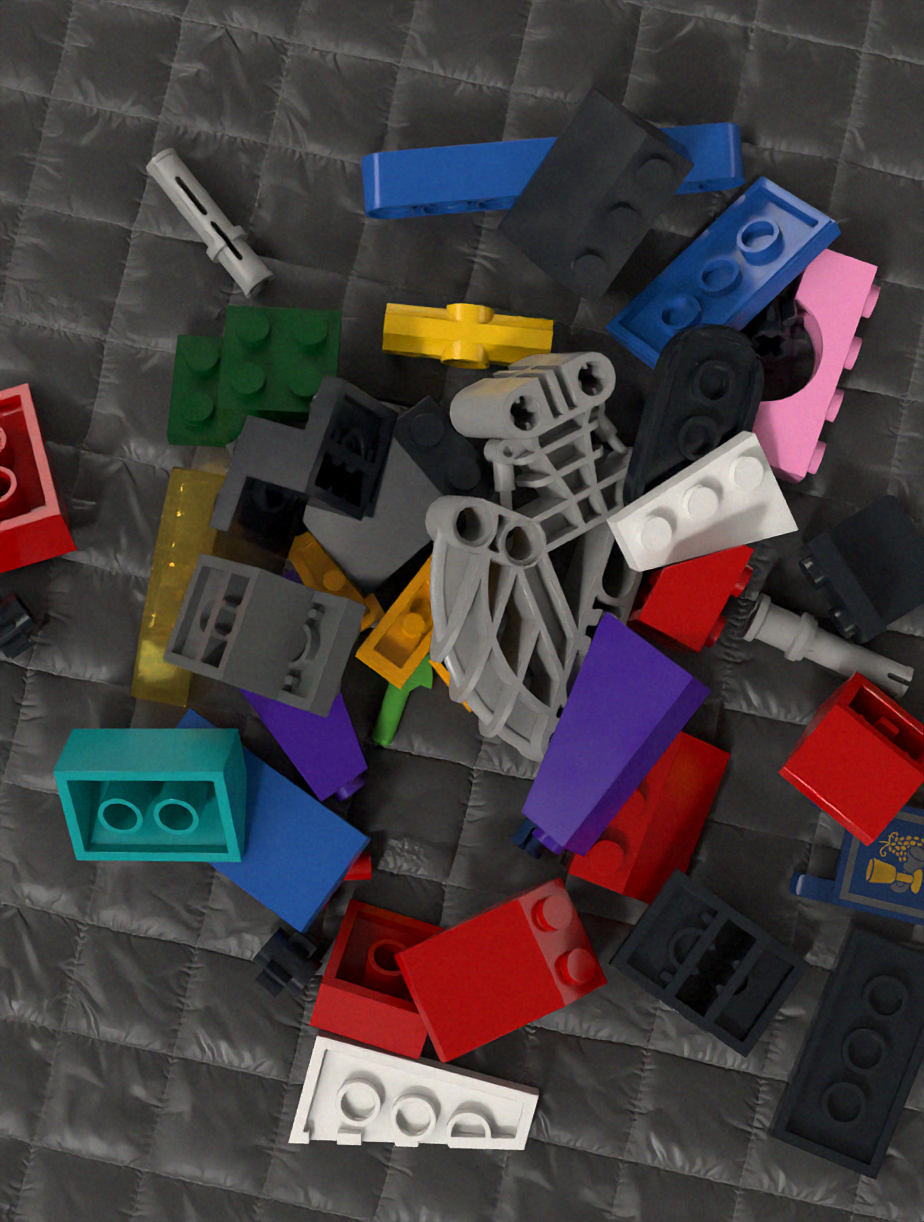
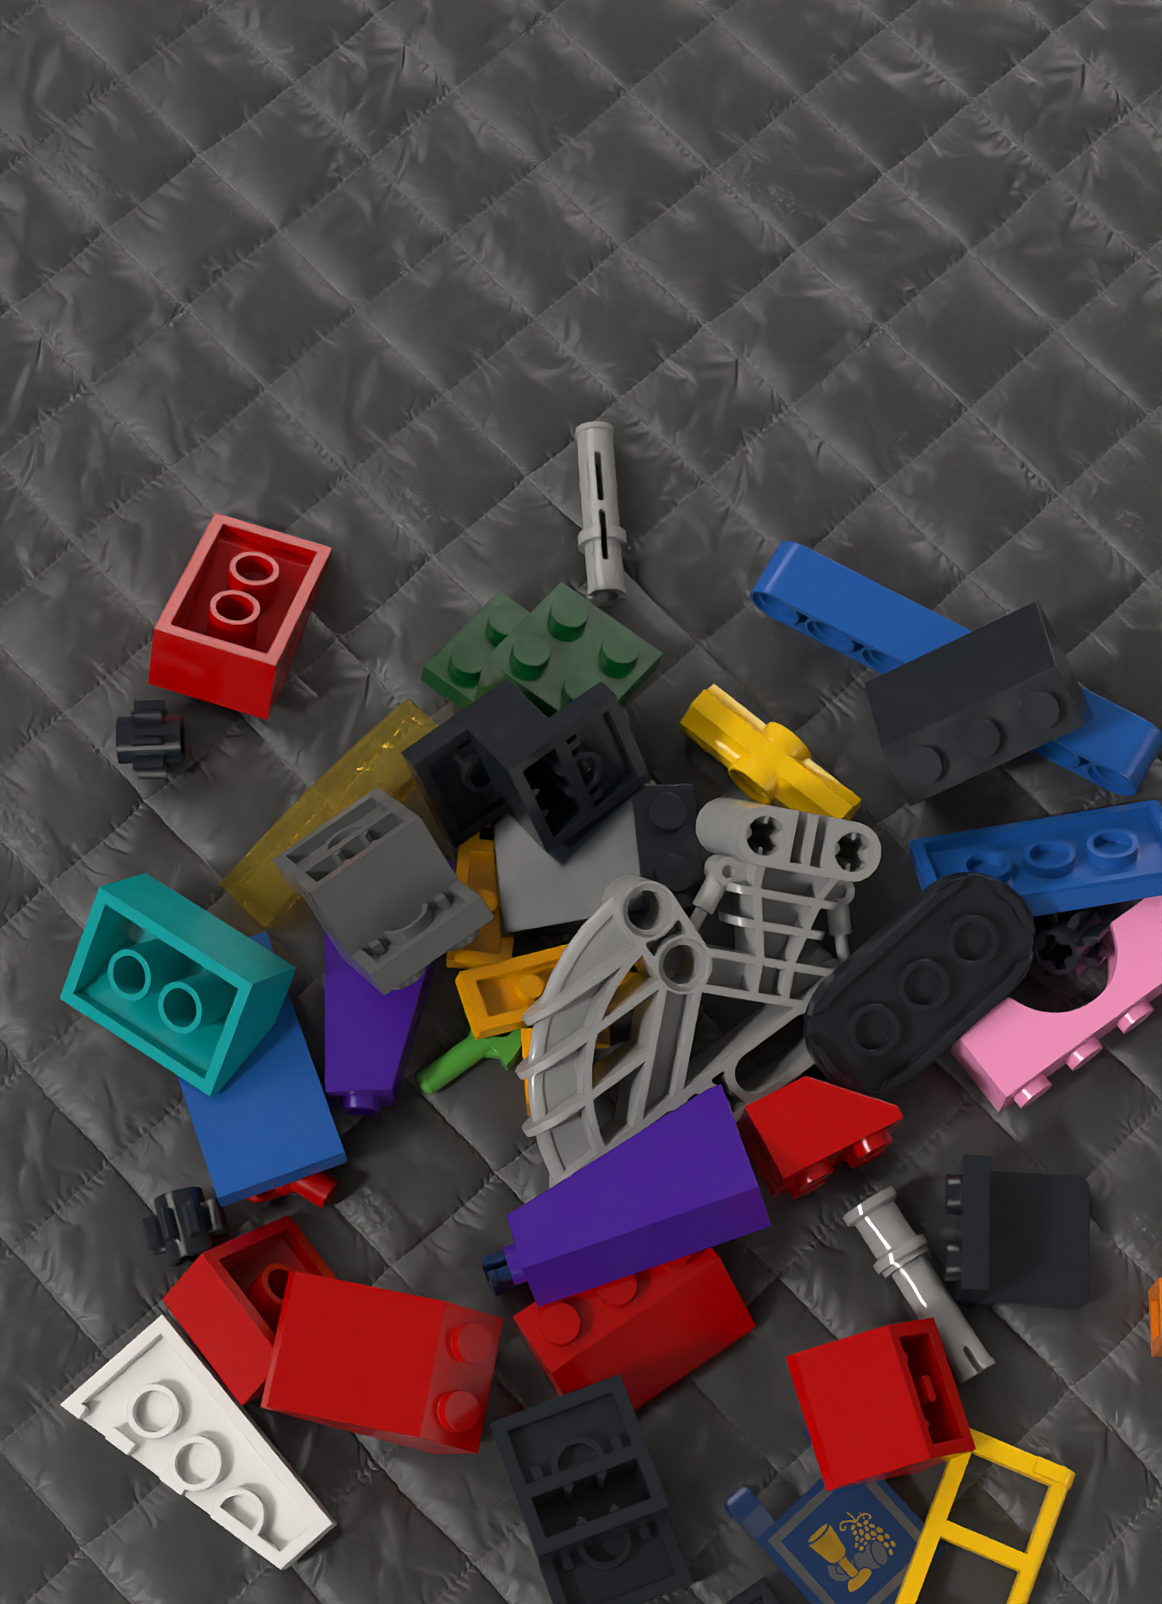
camera: 35 degrees right, 15 degrees down
(705, 508) = (888, 1052): white wing -> none

